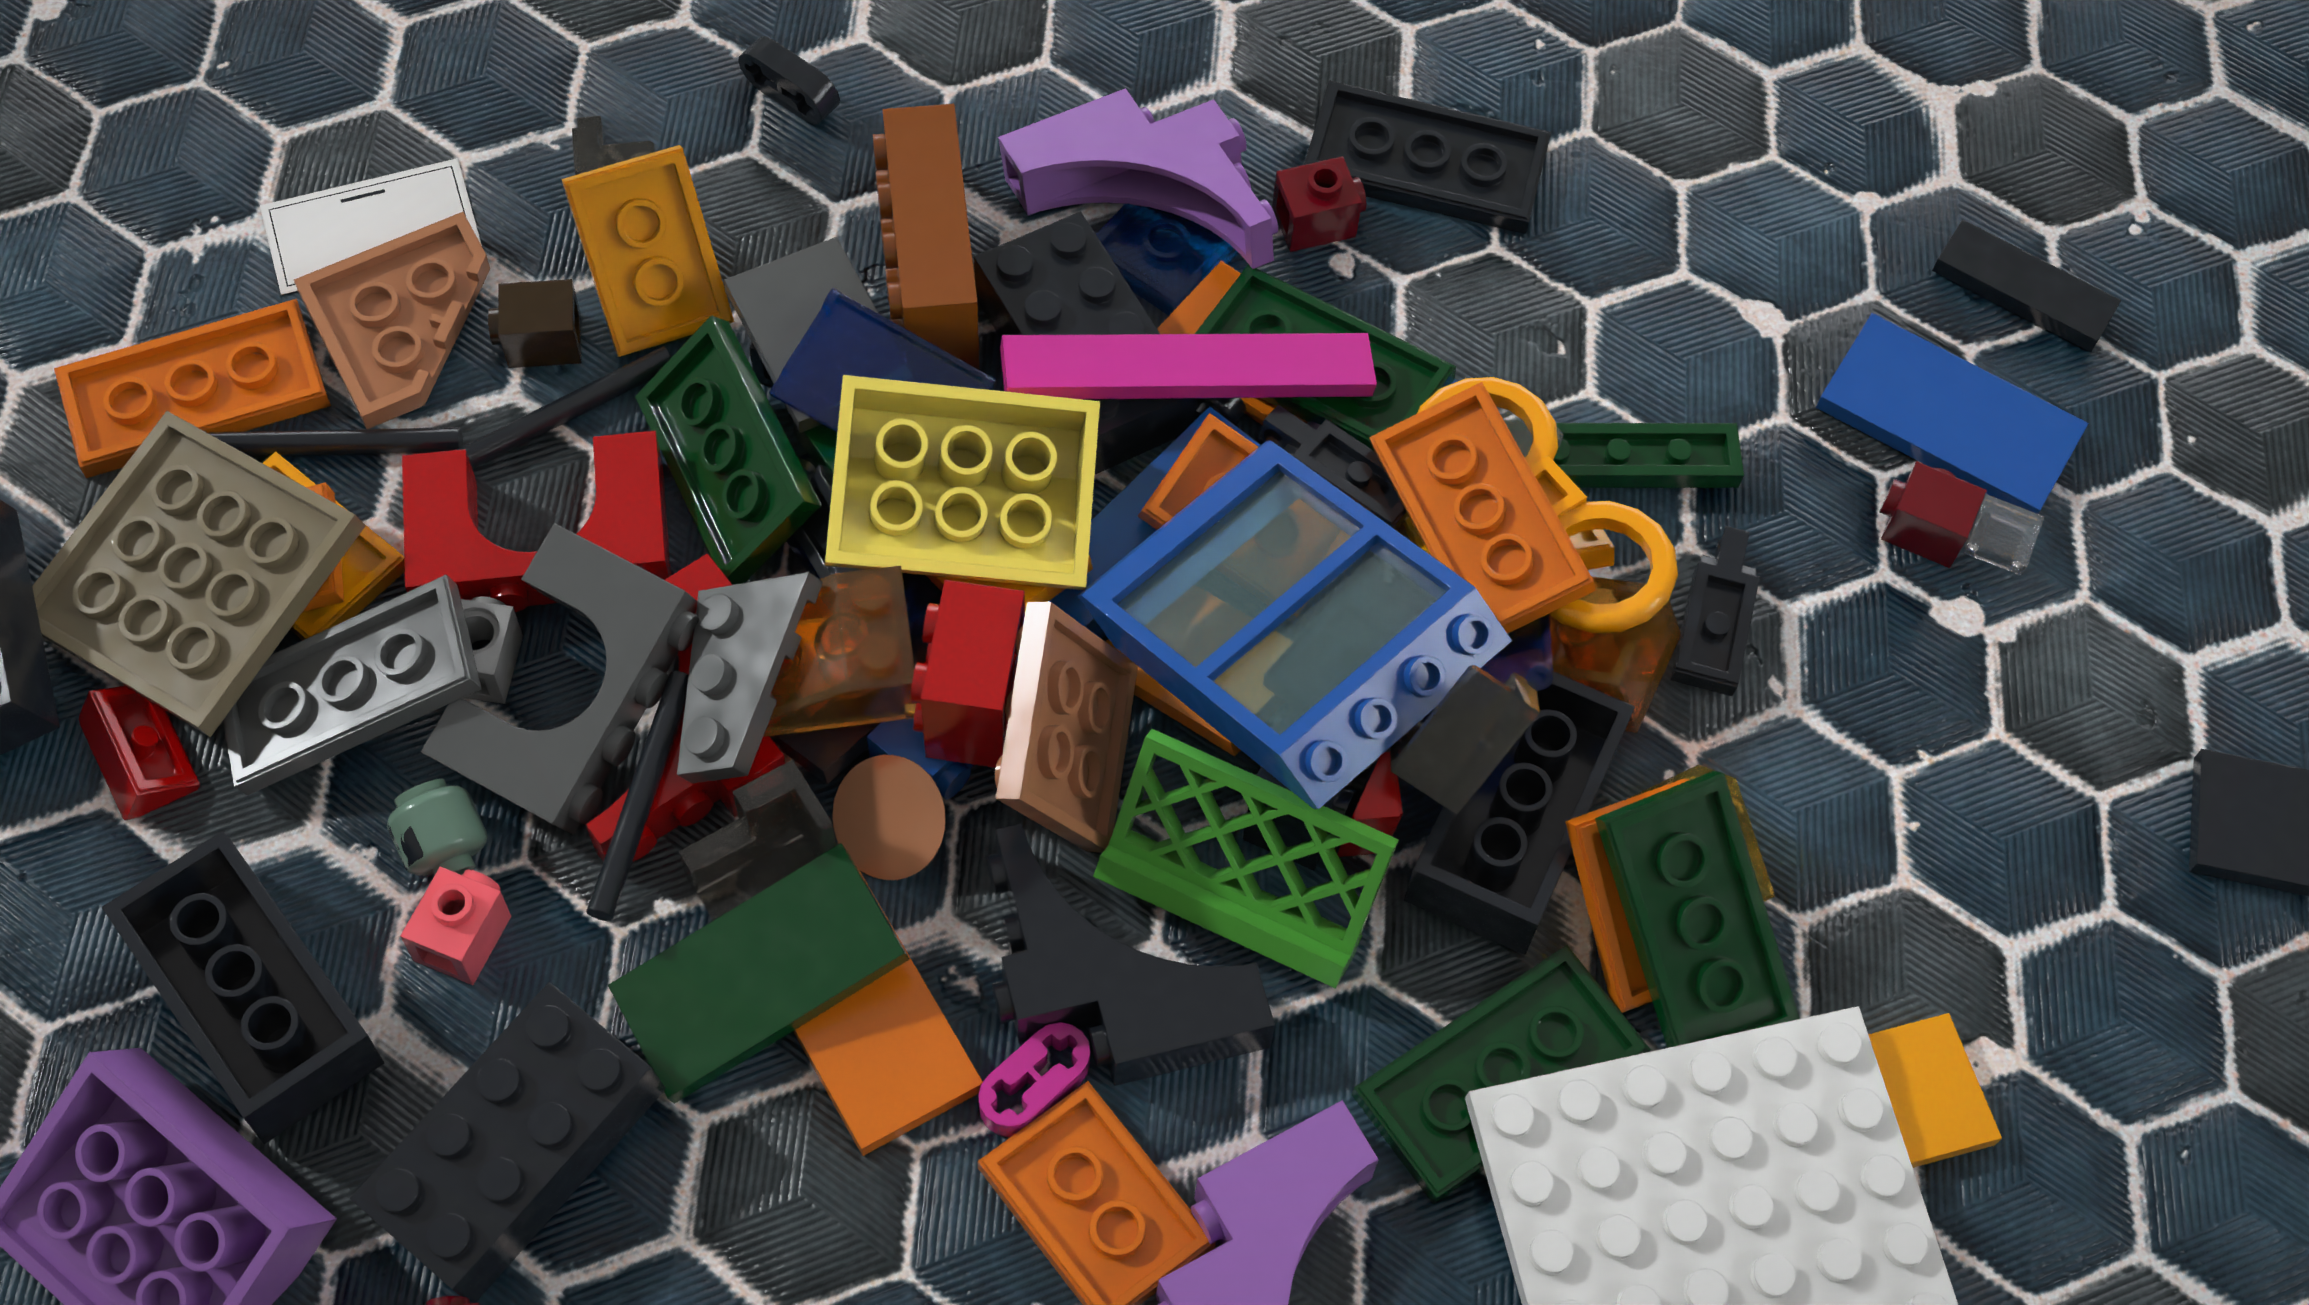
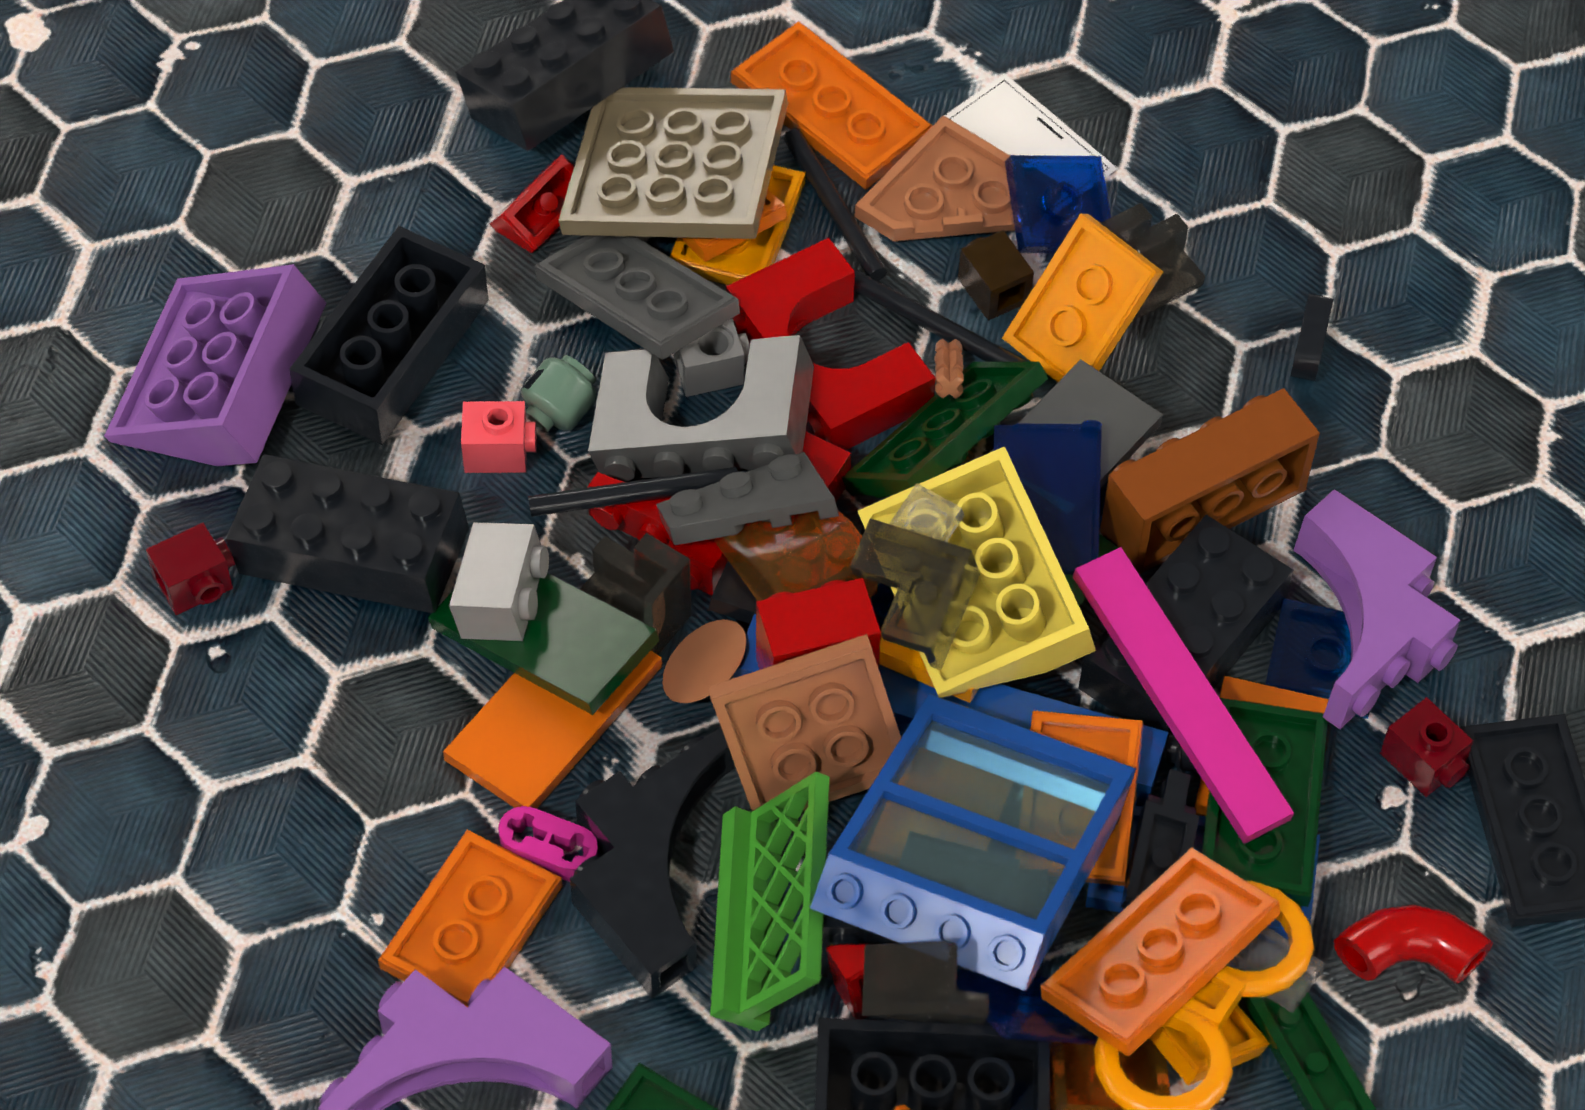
camera: 70 degrees right, 5 degrees down
(487, 221) = (1051, 194): none -> clear blue tile
(640, 415) = (949, 368): none -> nougat axle
(683, 989) = (498, 581): none -> brick
(887, 495) = (928, 514): none -> clear plate
(978, 514) = (931, 582): none -> clear smoke panel
(1513, 312) = (1409, 935): none -> red cylinder

